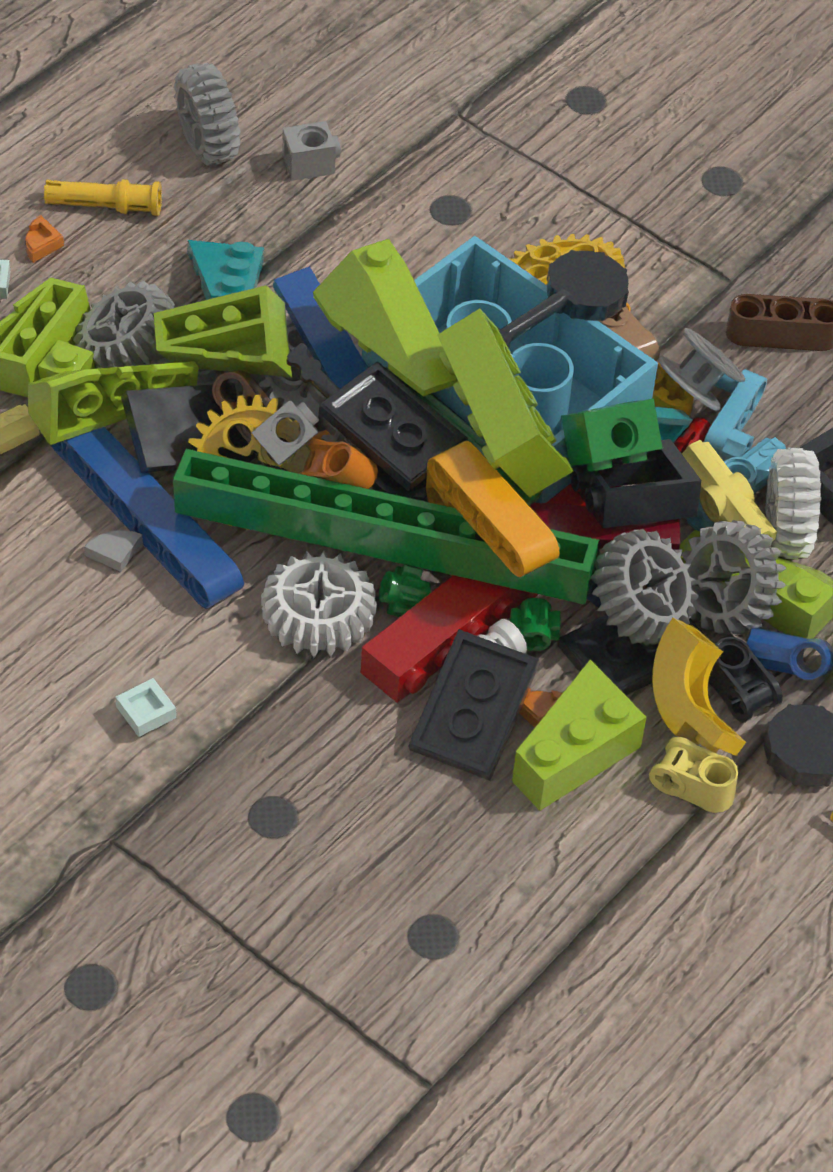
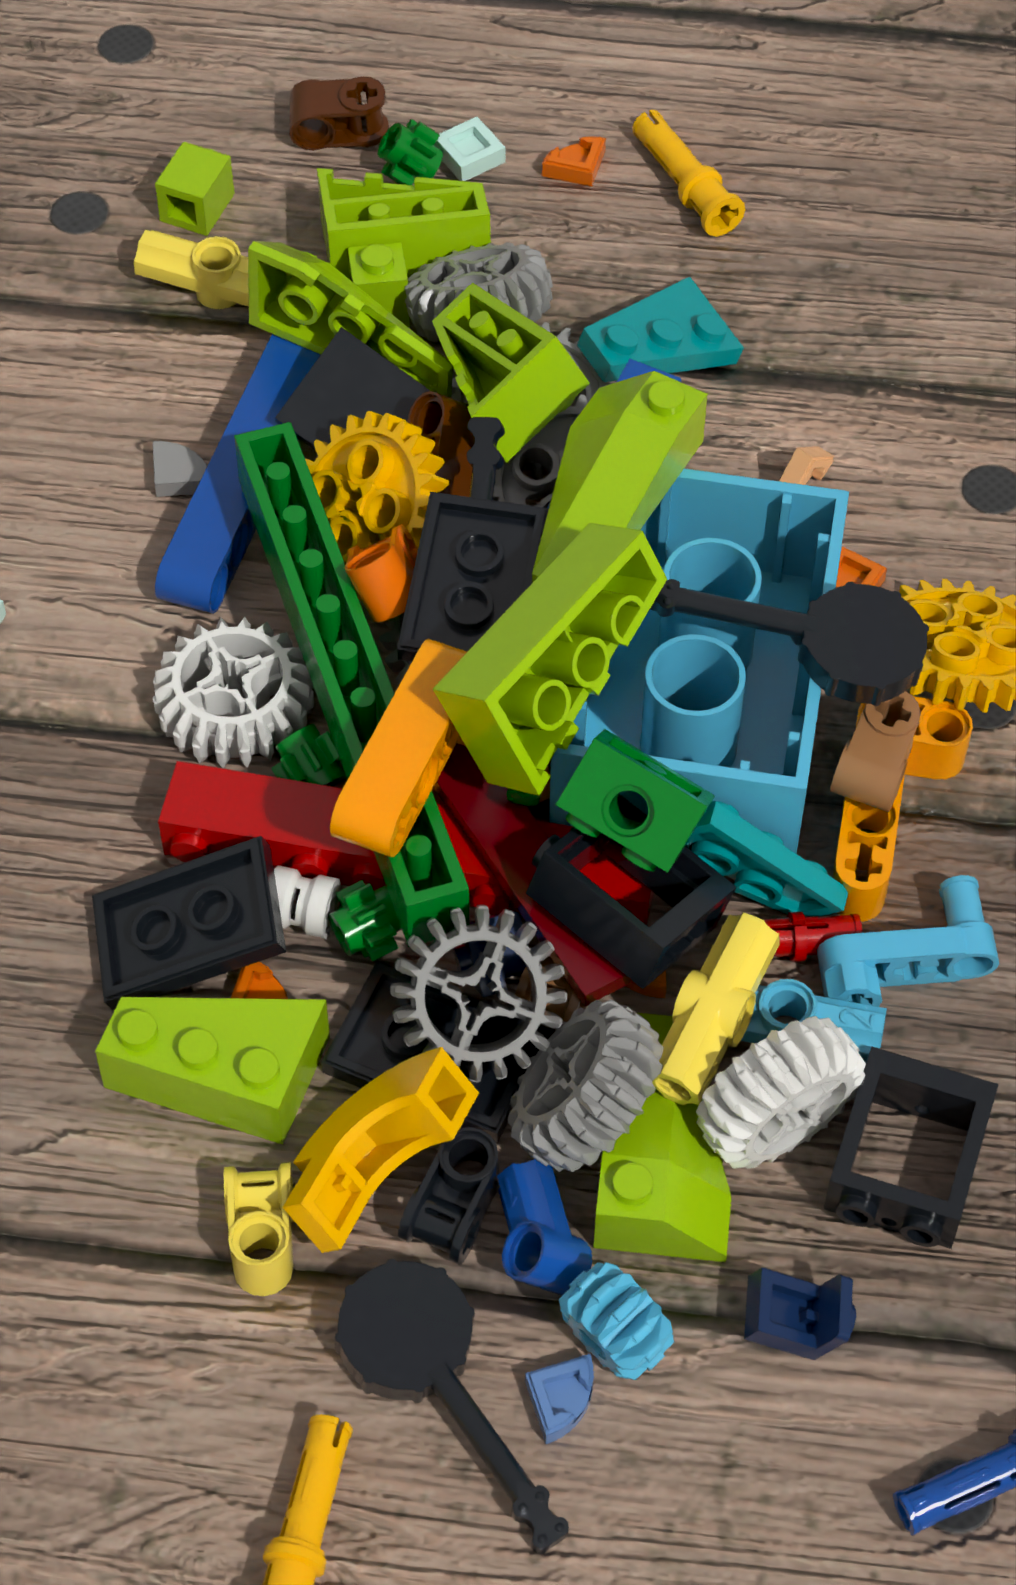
camera: 60 degrees right, 5 degrees up
(207, 113) = (878, 175): light grey gear -> none
(267, 431) = (383, 491): light grey brick -> none
(310, 150) = (935, 301): light grey brick -> none
(701, 369) = (903, 844): light grey piece -> none

